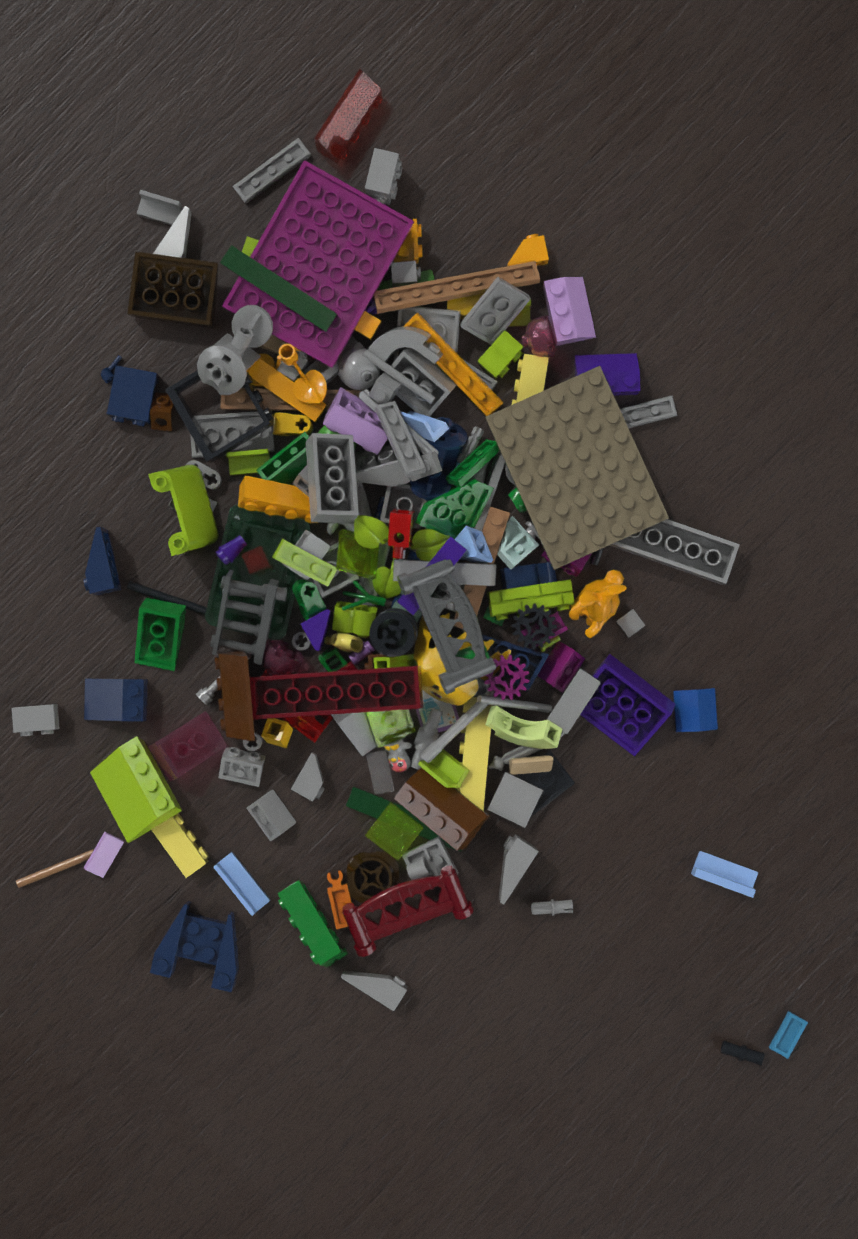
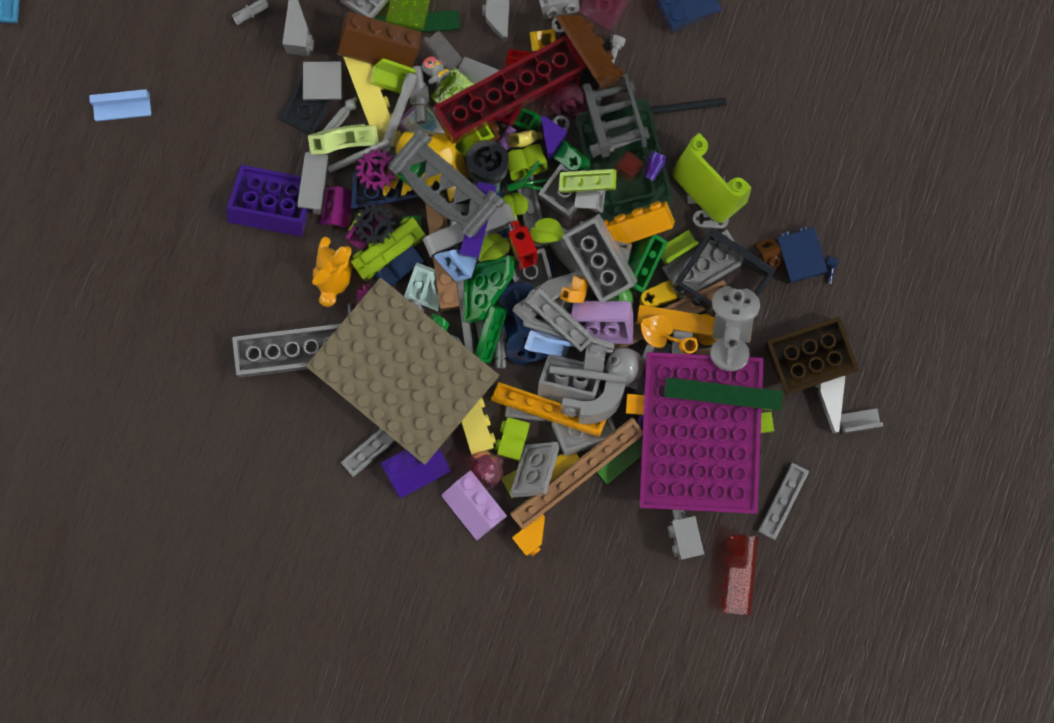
camera: 155 degrees right, 5 degrees down
(101, 566) = (751, 98): dark blue slope -> none
(159, 633) = (679, 73): green slope -> none
(356, 558) = (549, 206): clear neon green plate -> none
(369, 459) = (577, 291): none -> light orange piece
(405, 273) = (626, 466): light grey brick -> none
(410, 249) = (631, 490): light orange bracket -> none
(530, 764) = (323, 115): tan slope -> none
(630, 623) = (296, 271): light grey tile -> none
(695, 710) = (208, 226): blue slope -> none

